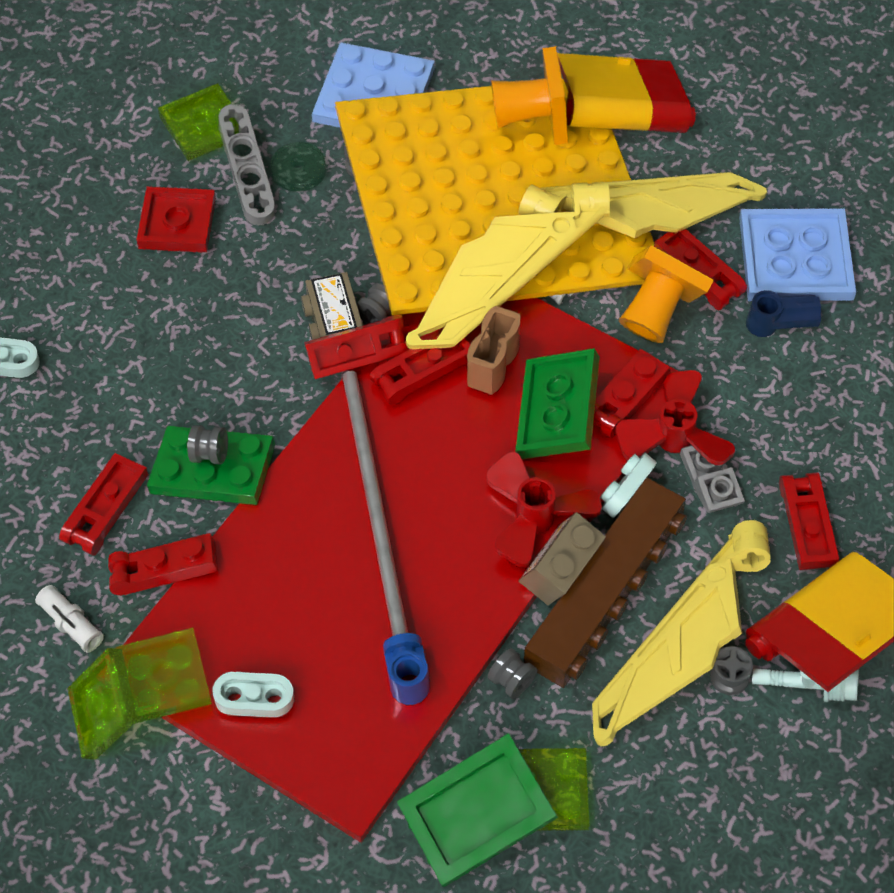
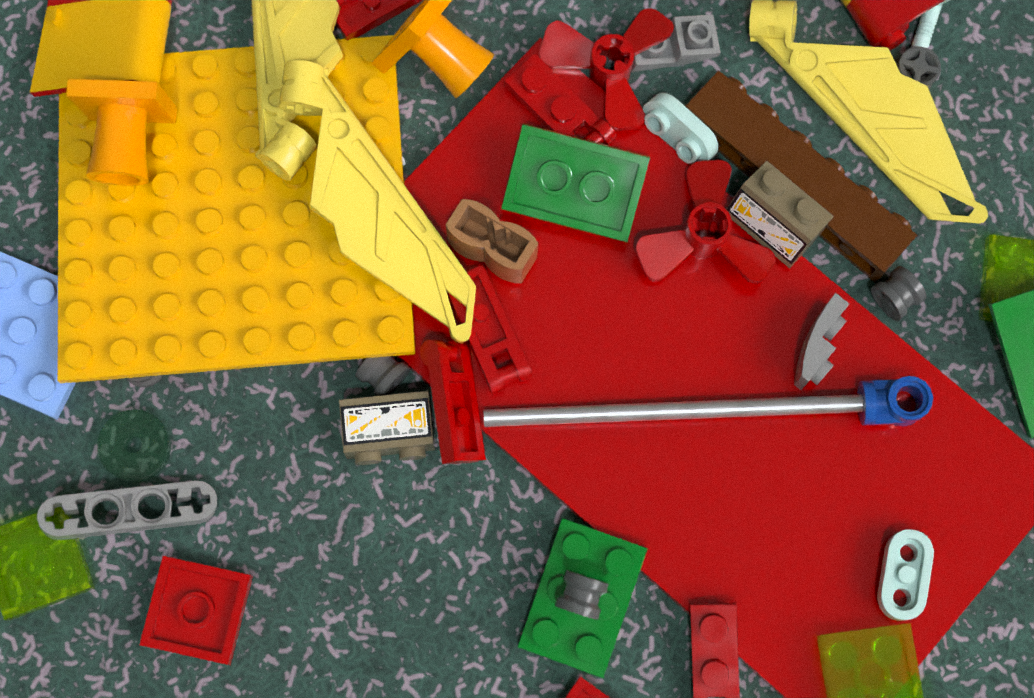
camera: 85 degrees left, 20 degrees up
(440, 600) = (816, 350): none -> light grey slope

